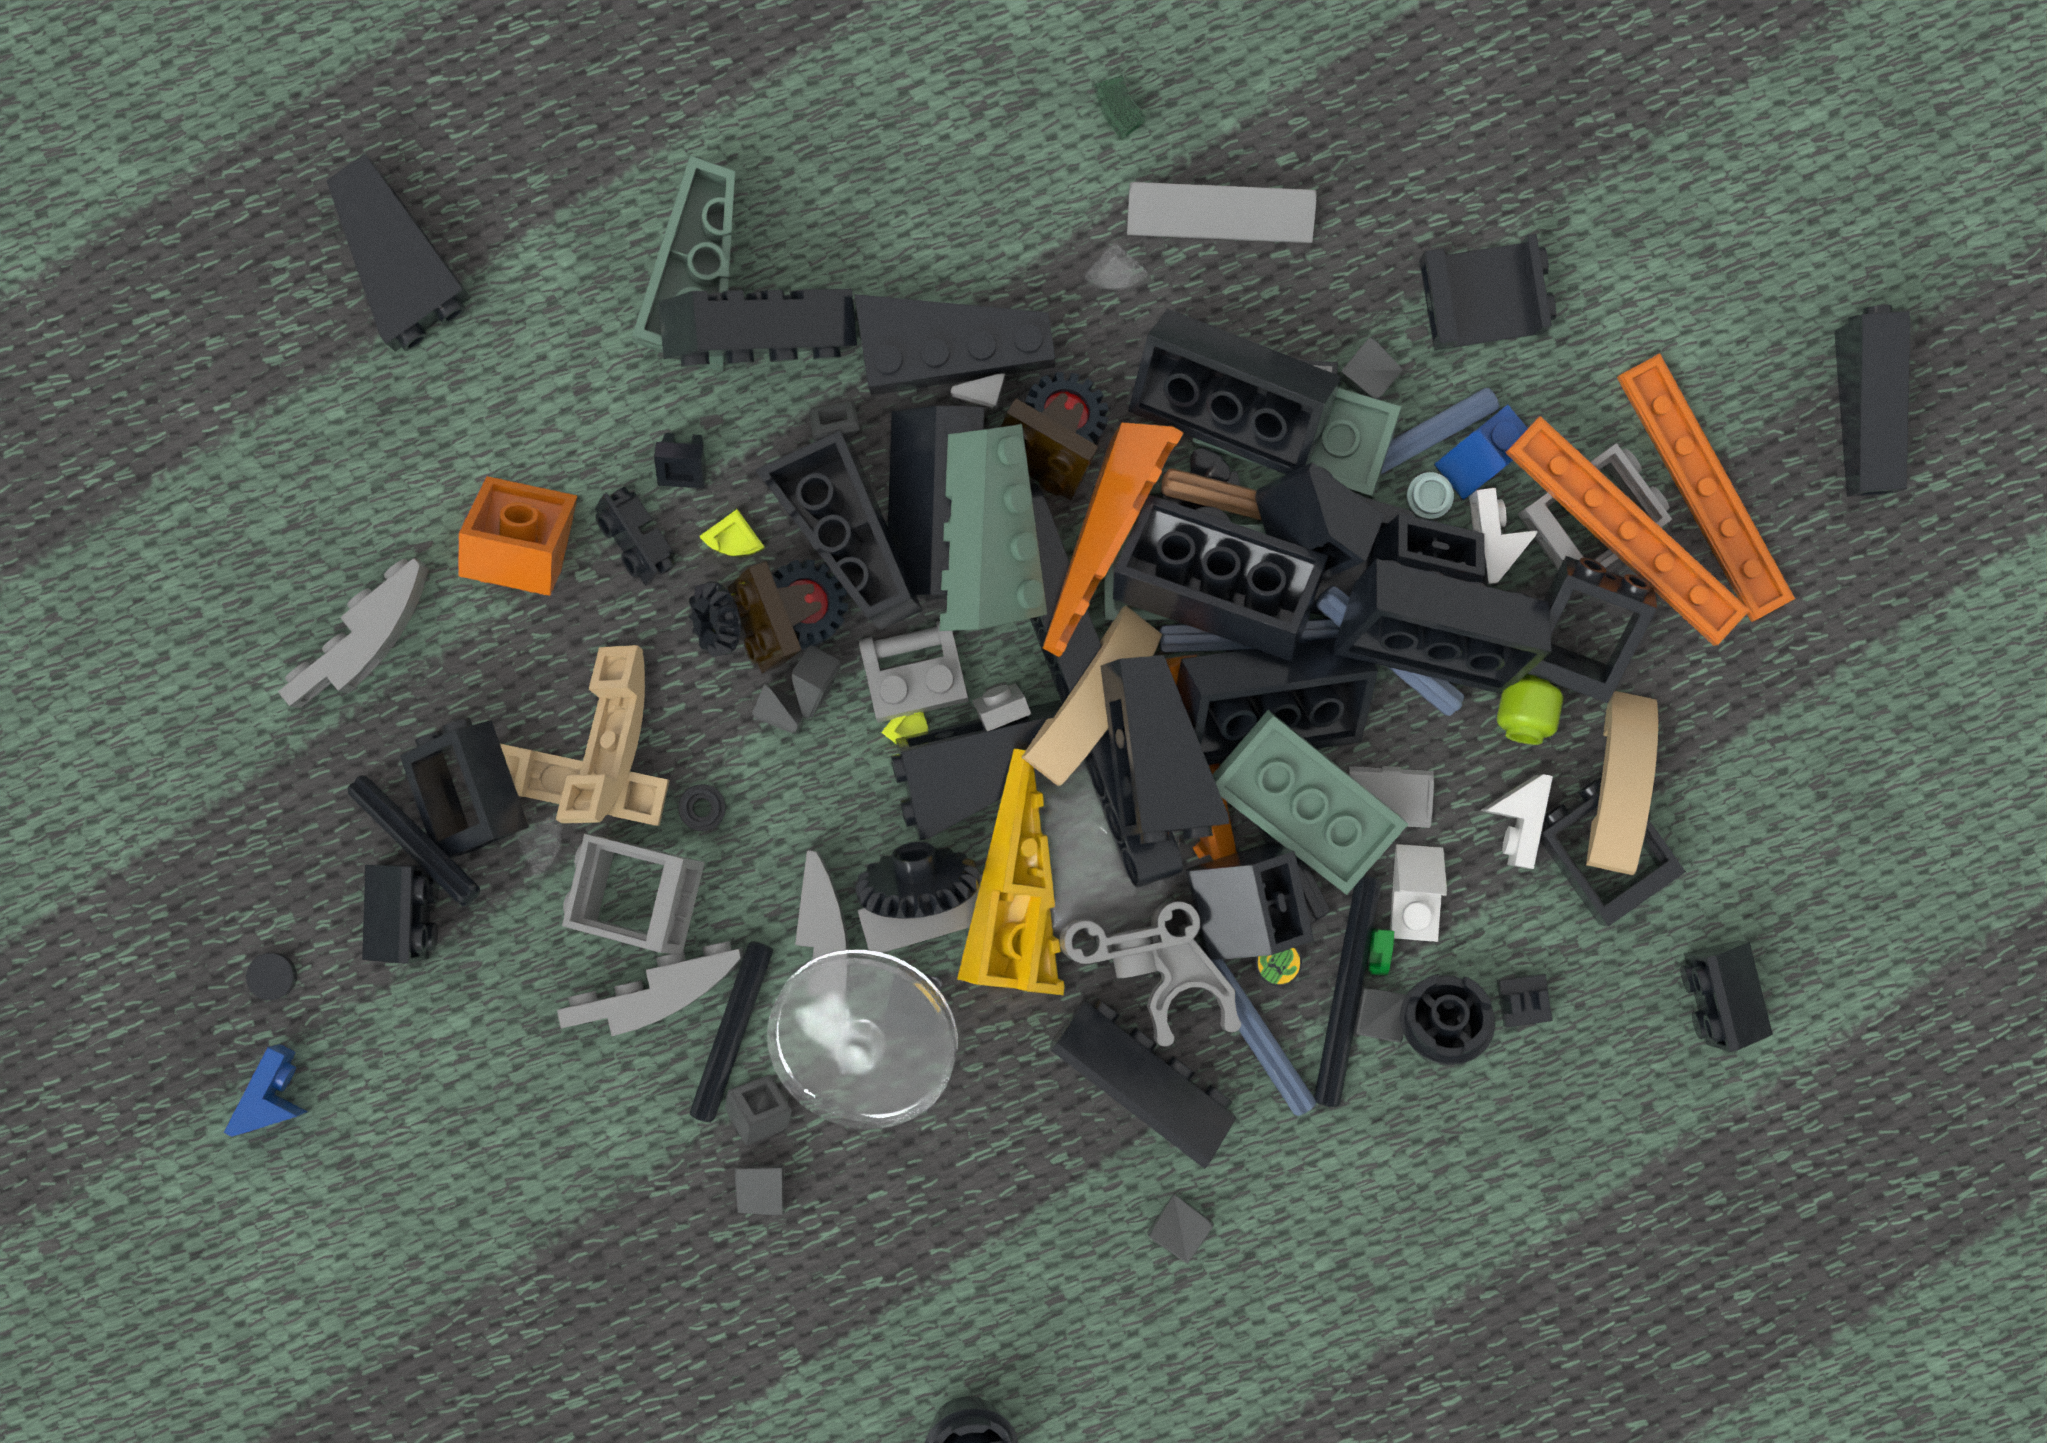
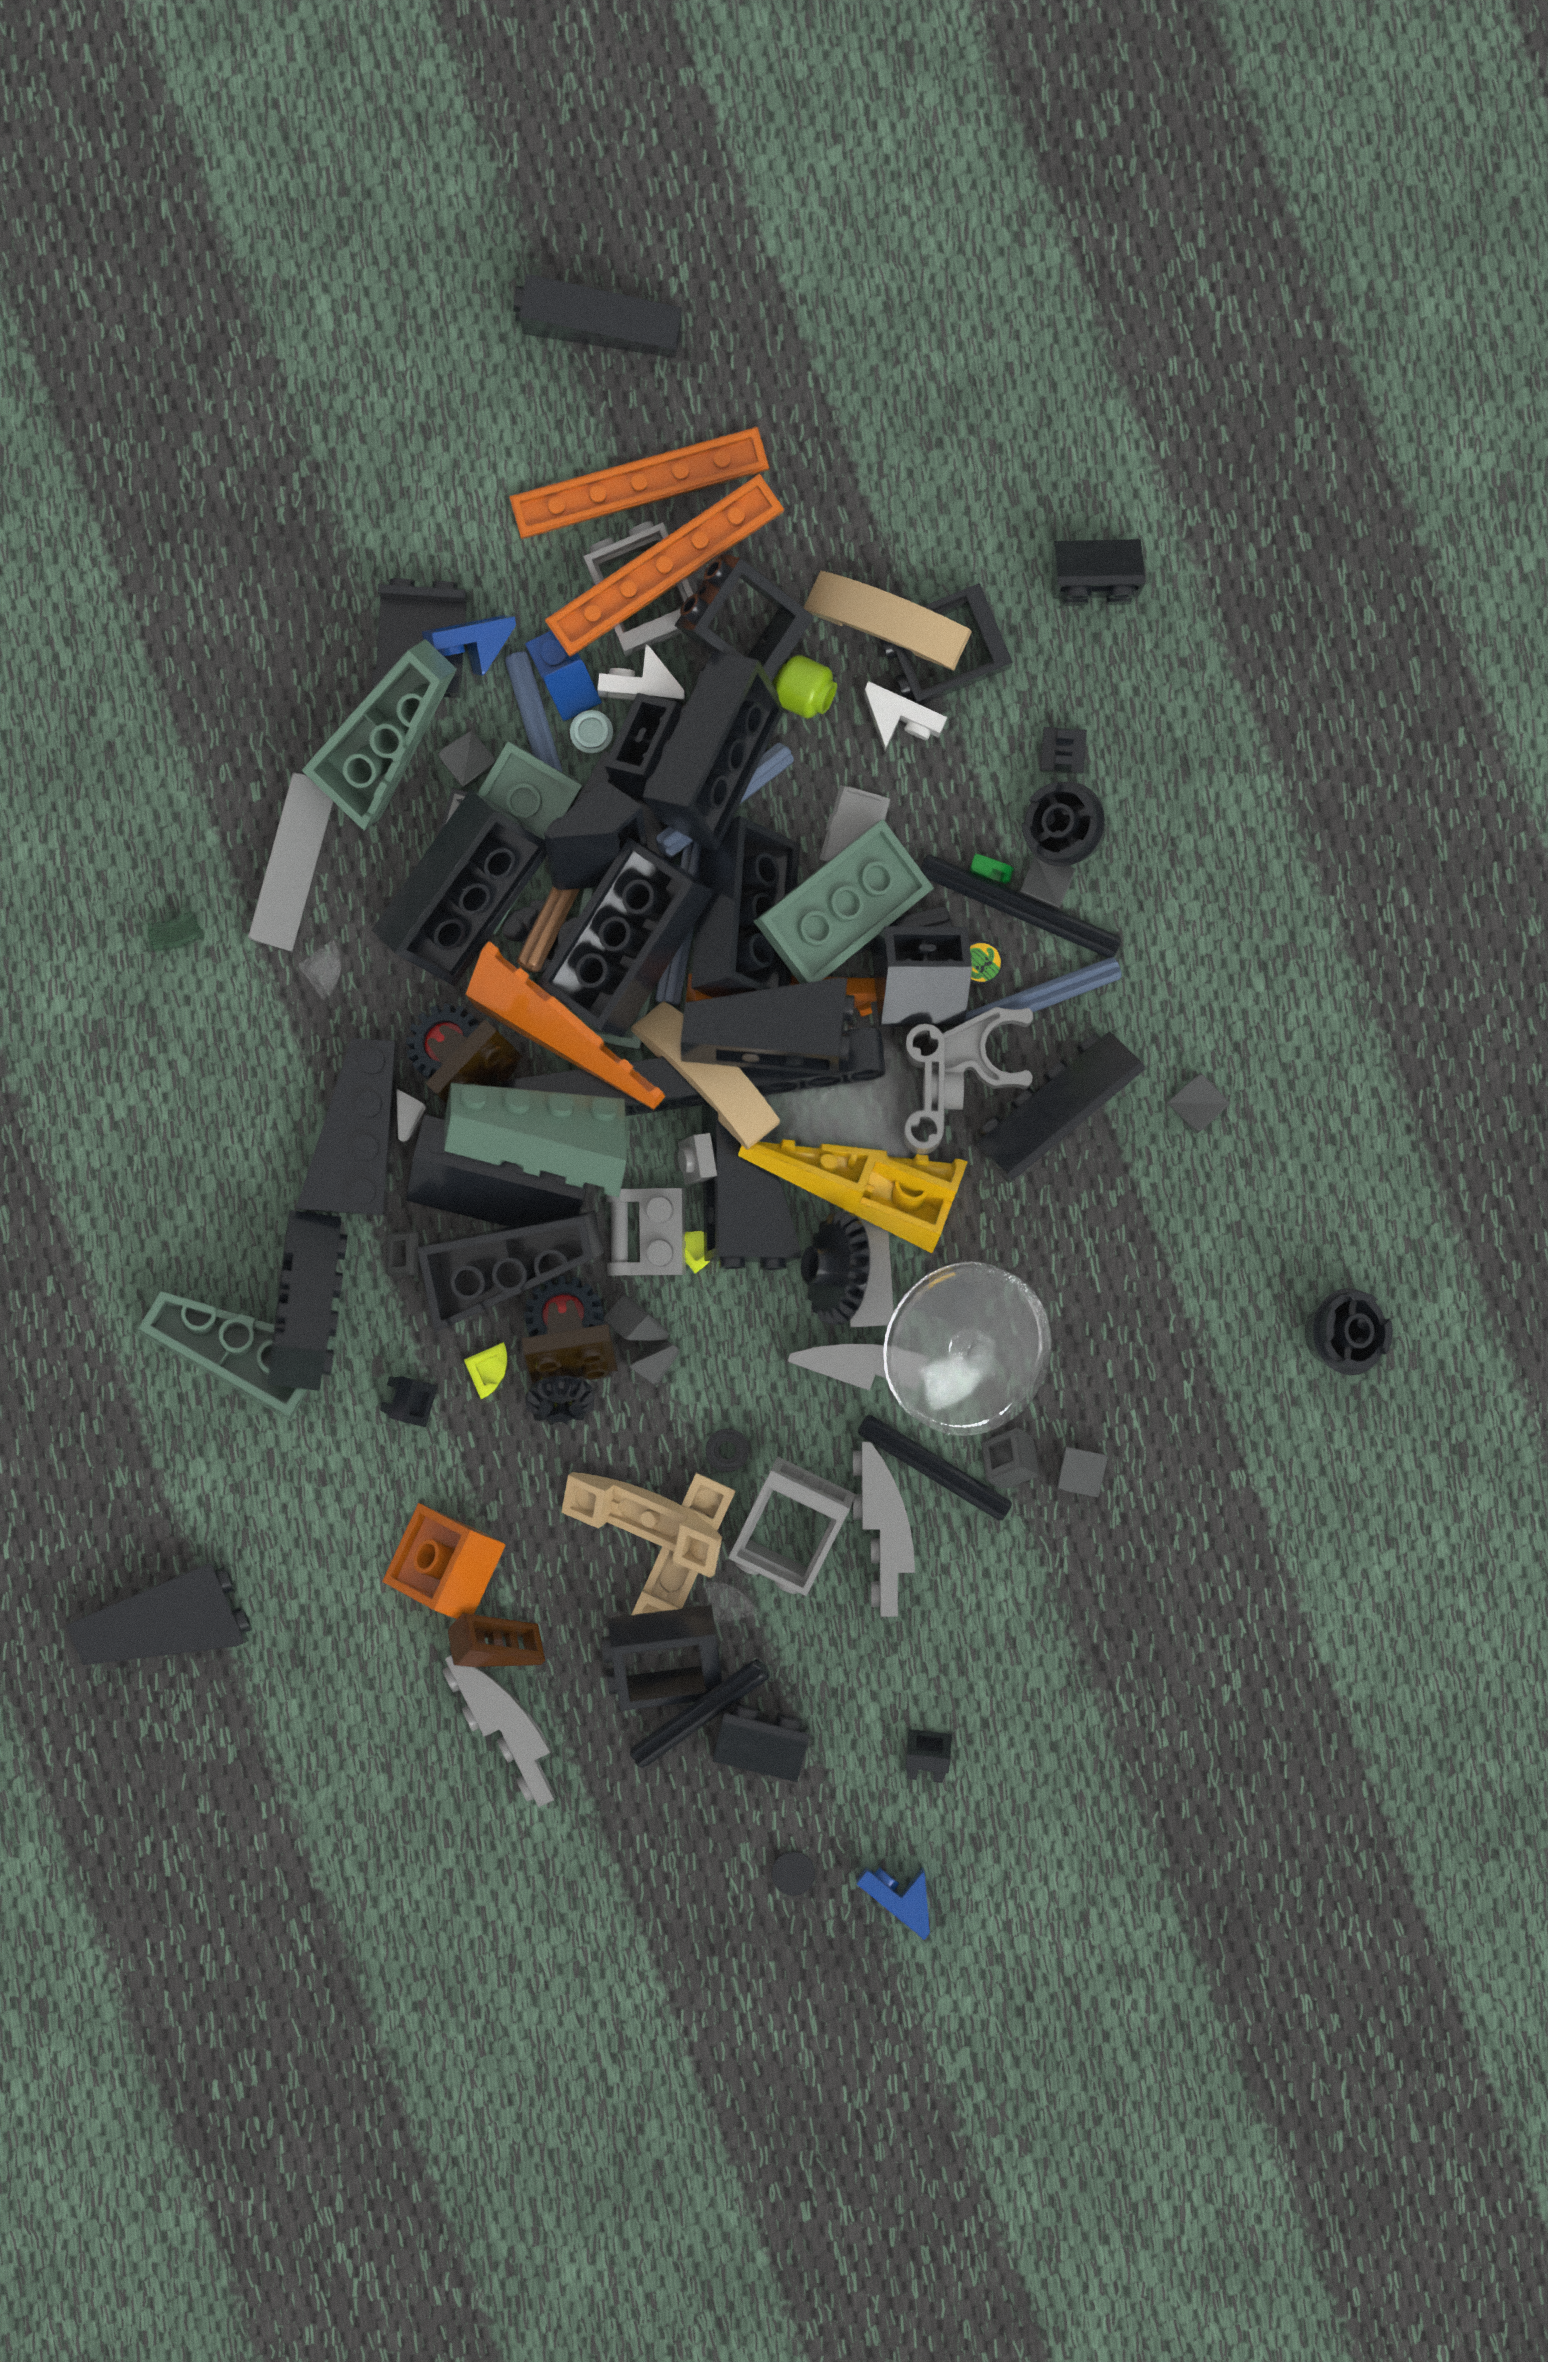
camera: 80 degrees left, 0 degrees up
(426, 1092) = (929, 1753): none -> black tile
(434, 580) = (469, 1646): none -> reddish brown slope
(622, 521) = (449, 1467): black hinge -> none
(1373, 270) = (378, 740): none -> sand green wedge
(1417, 892) = (945, 824): white slope -> none
(1504, 358) = (482, 637): none -> blue slope

